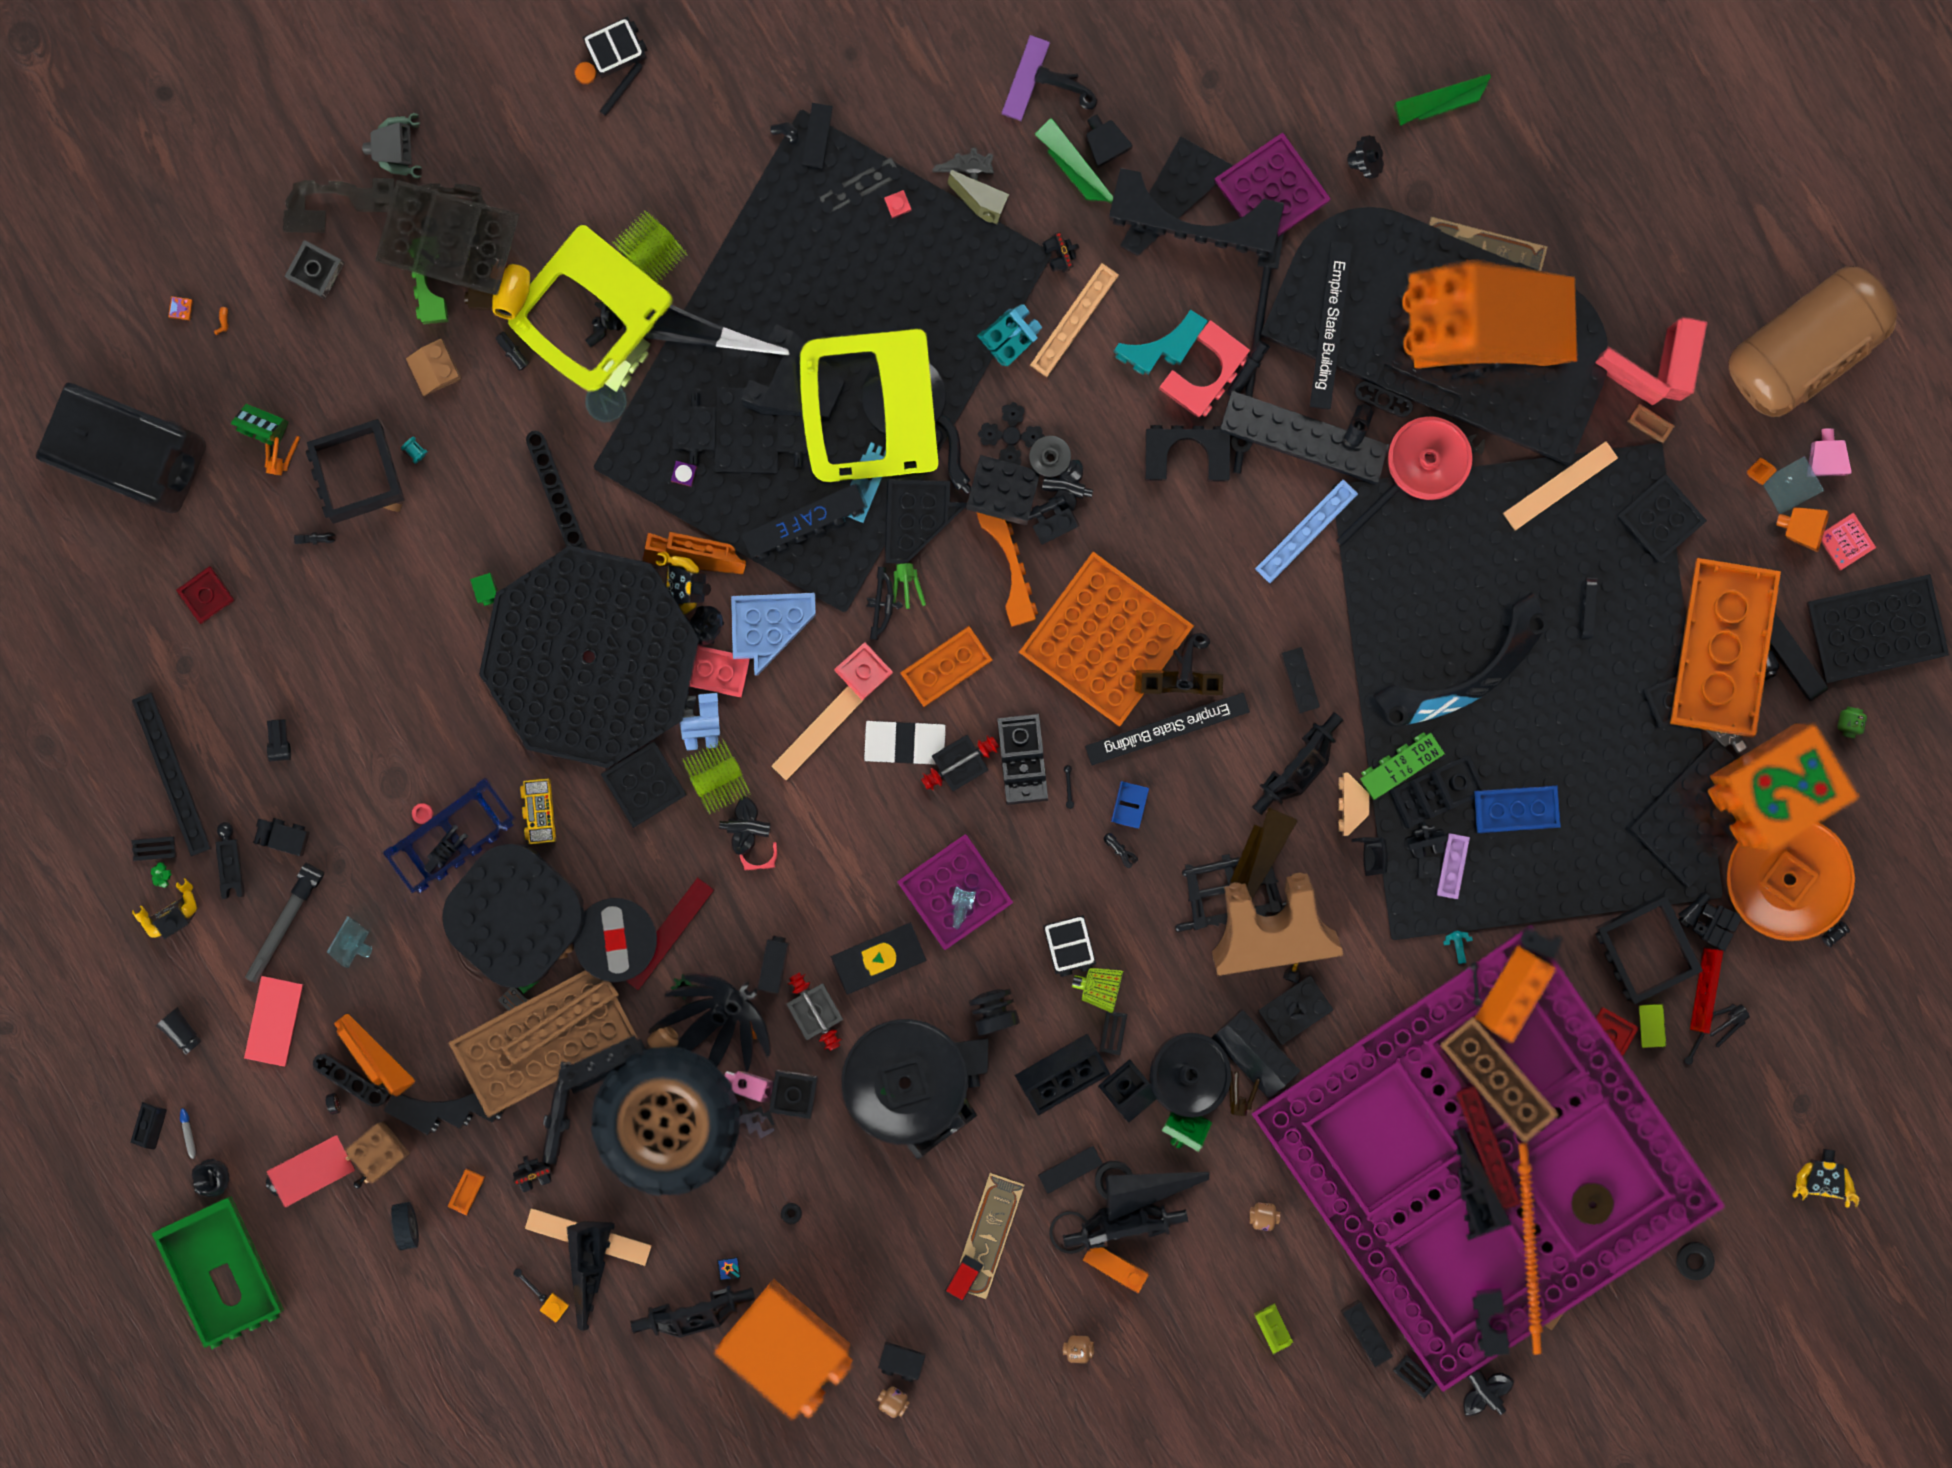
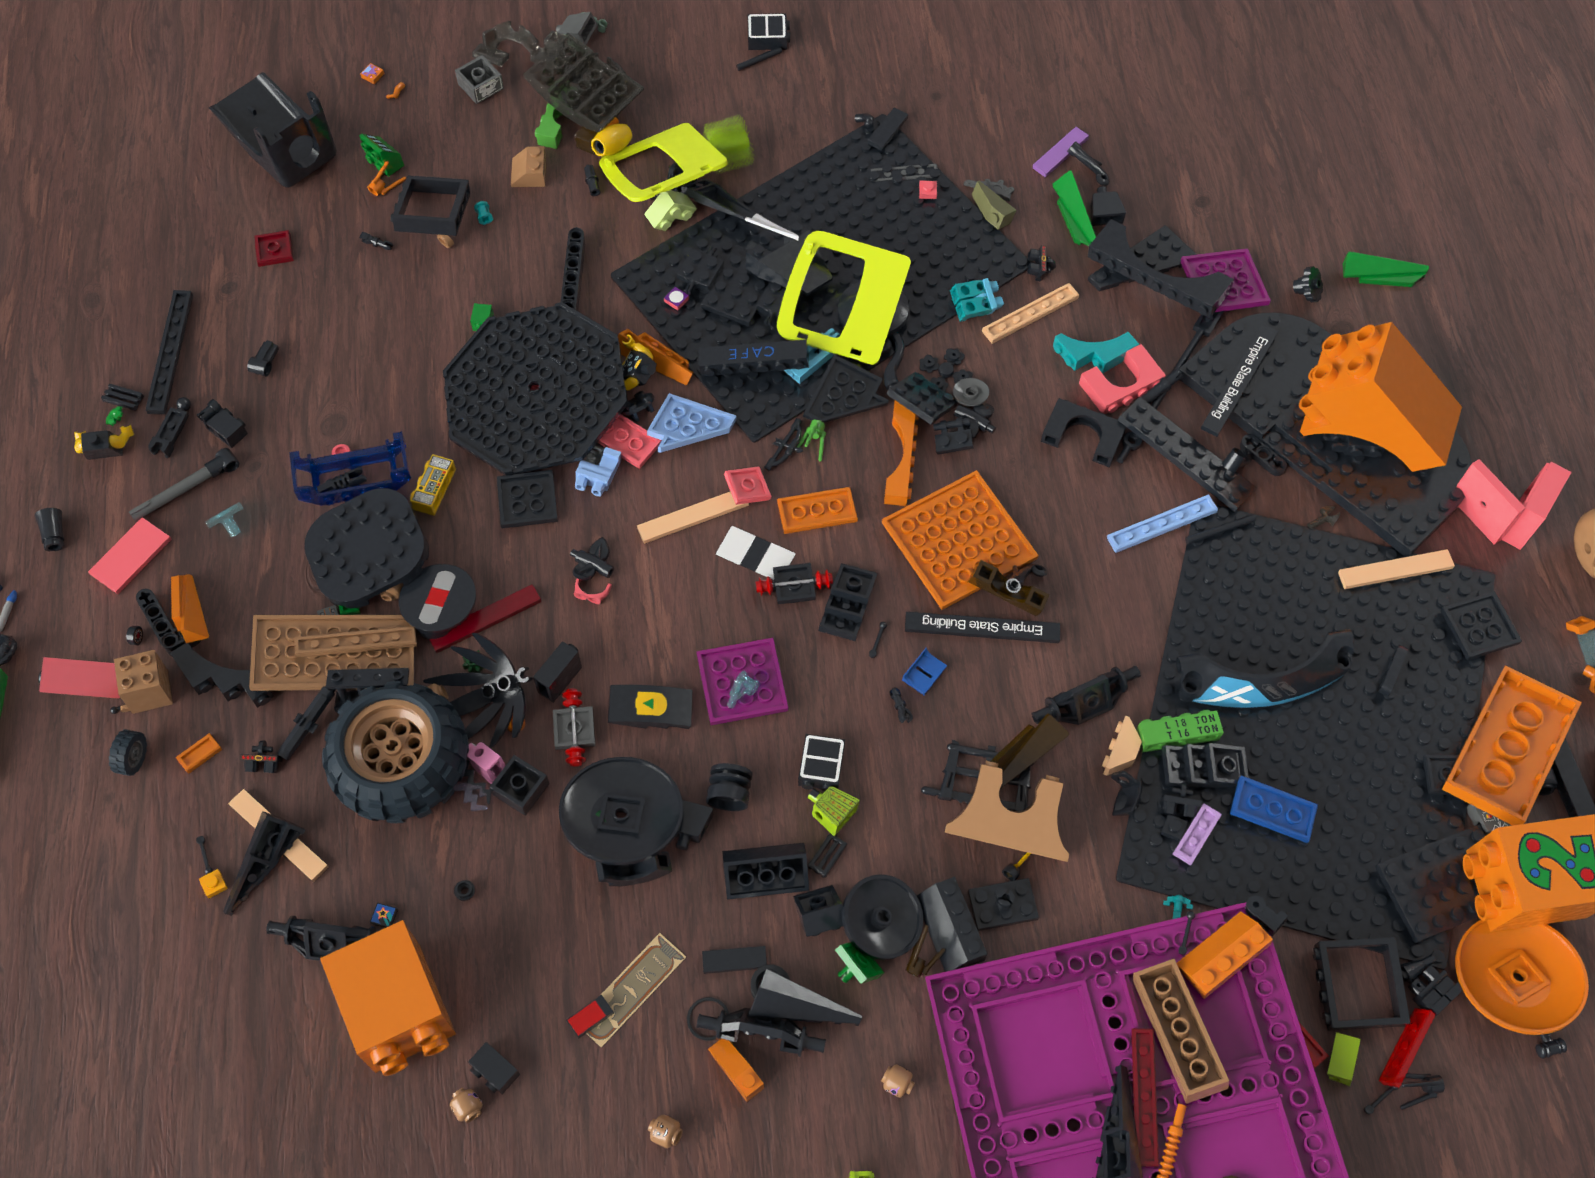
camera: 25 degrees right, 25 degrees down
(585, 73) = (738, 41): orange tile -> none
(606, 404) = (643, 236): clear light blue tile -> none
(716, 776) = (587, 506): lime piece -> none
(1300, 680) = (1114, 633): black arch -> none
(1430, 458) = (1289, 506): coral dish -> none
(1650, 423) = (1489, 556): medium nougat tile -> none

